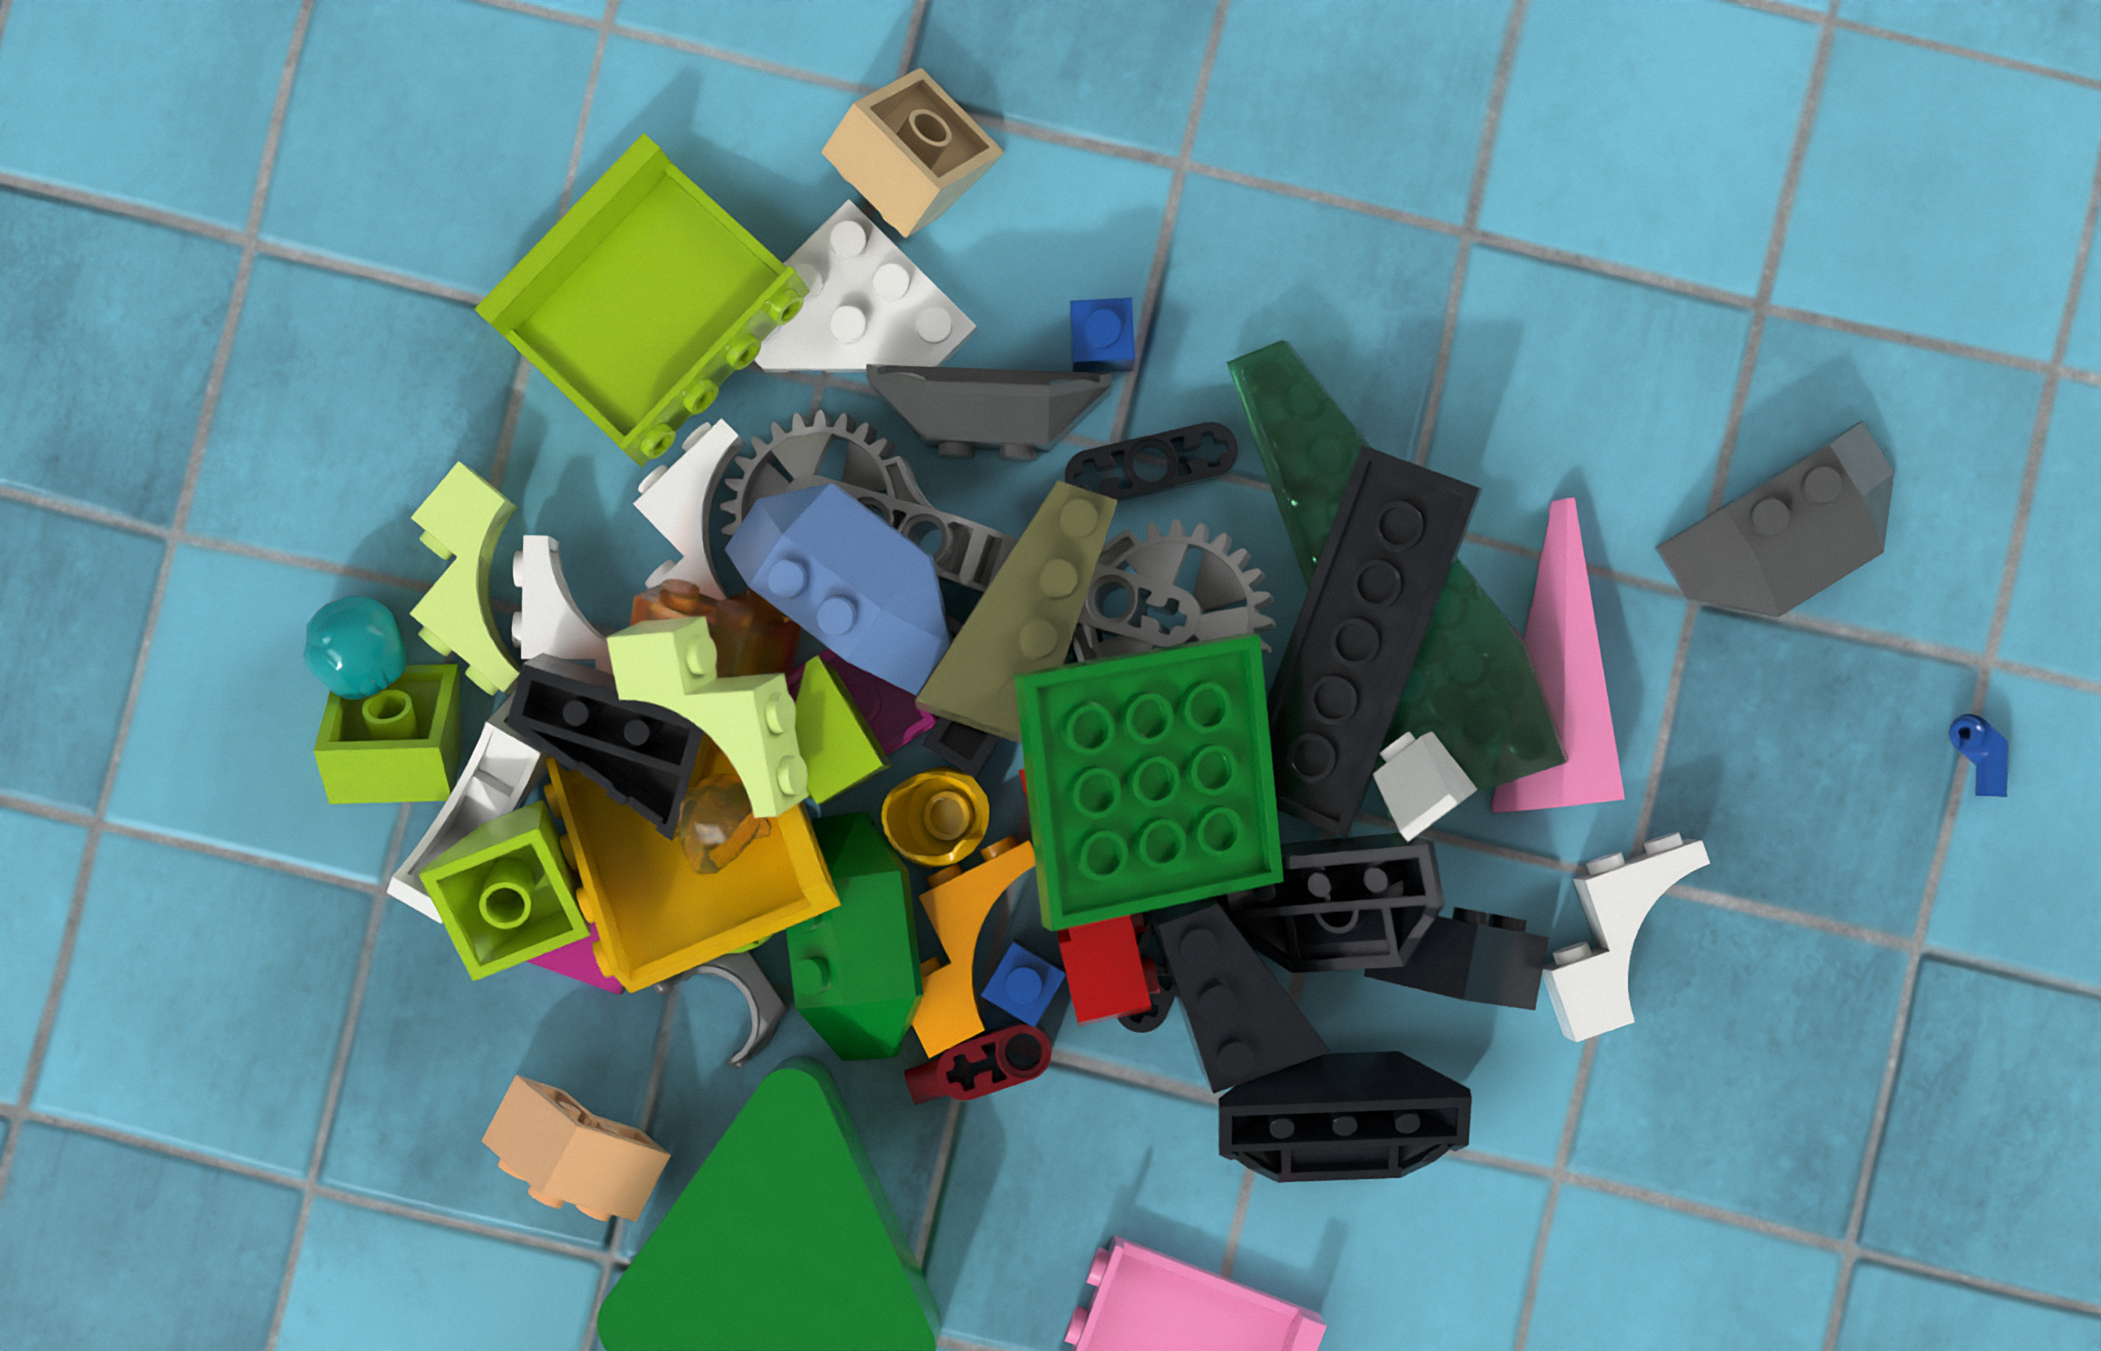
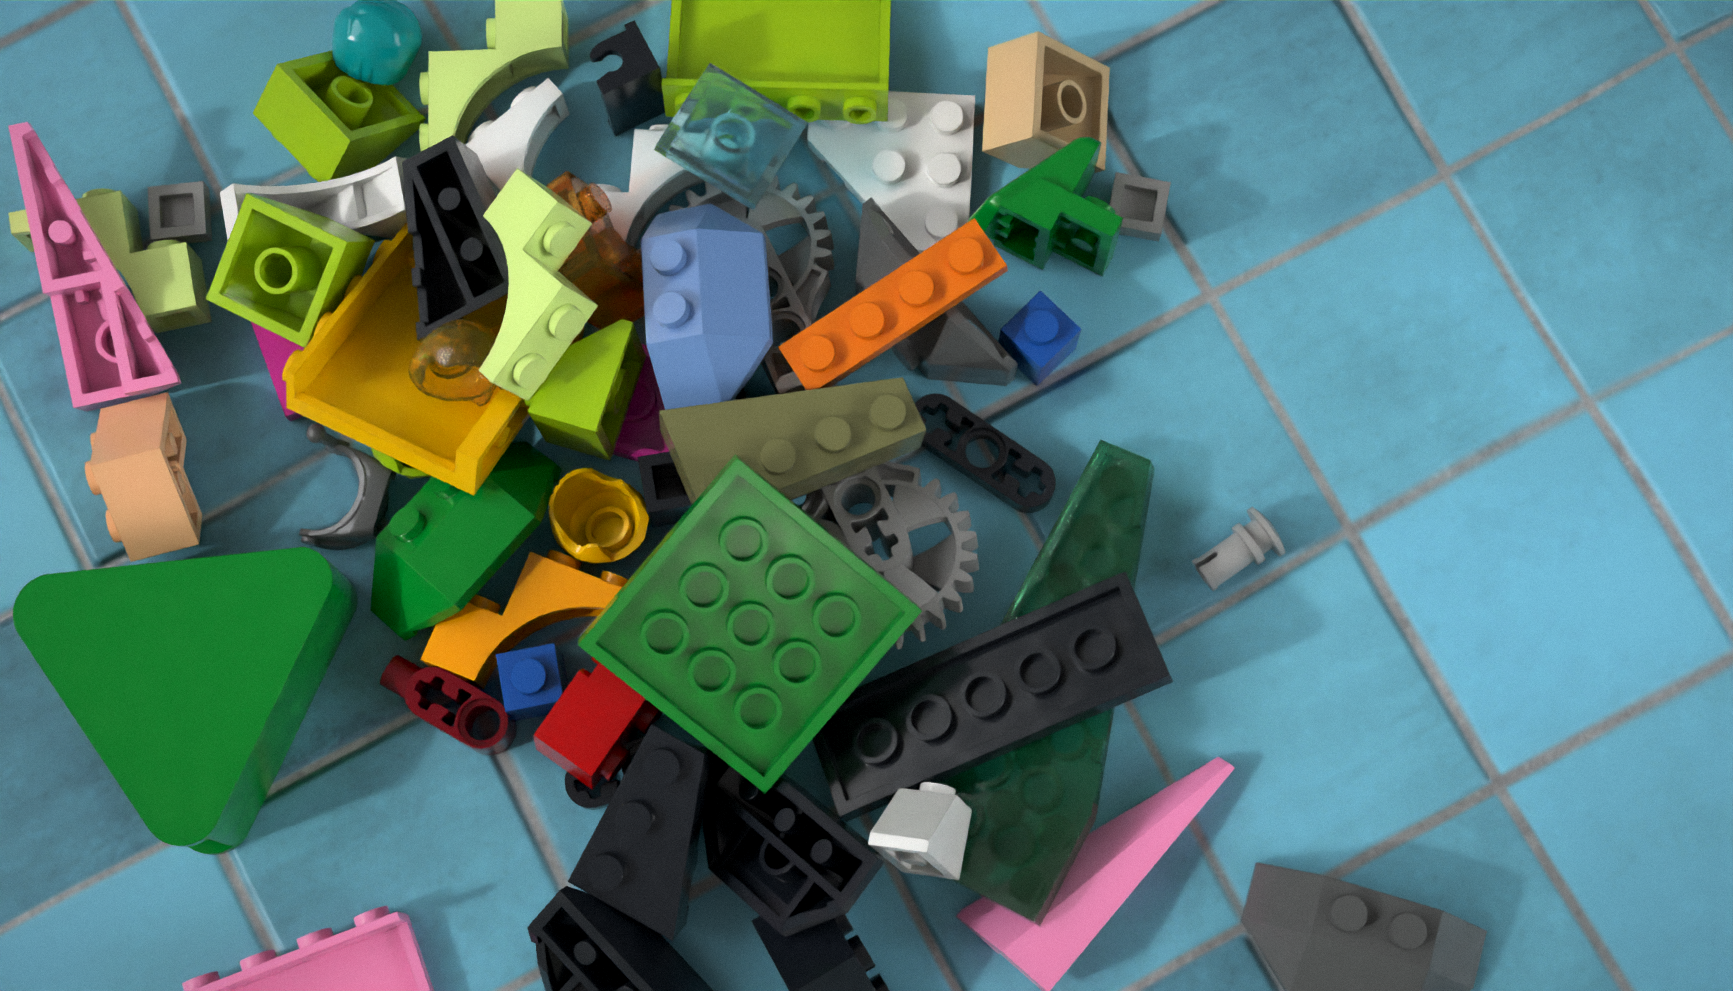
camera: 50 degrees right, 10 degrees down
(362, 936) = (180, 212): none -> light grey plate
(409, 1083) = (100, 328): none -> bright pink wedge
(411, 999) = (163, 278): none -> yellowish green arch
(594, 470) = (635, 89): none -> black hinge
(722, 435) = (731, 136): none -> clear light blue slope
(990, 435) = (894, 307): none -> orange plate
(1007, 235) = (1047, 212): none -> green piece
(1061, 155) = (1140, 204): none -> light grey plate
(1411, 335) = (1239, 550): none -> light grey pin

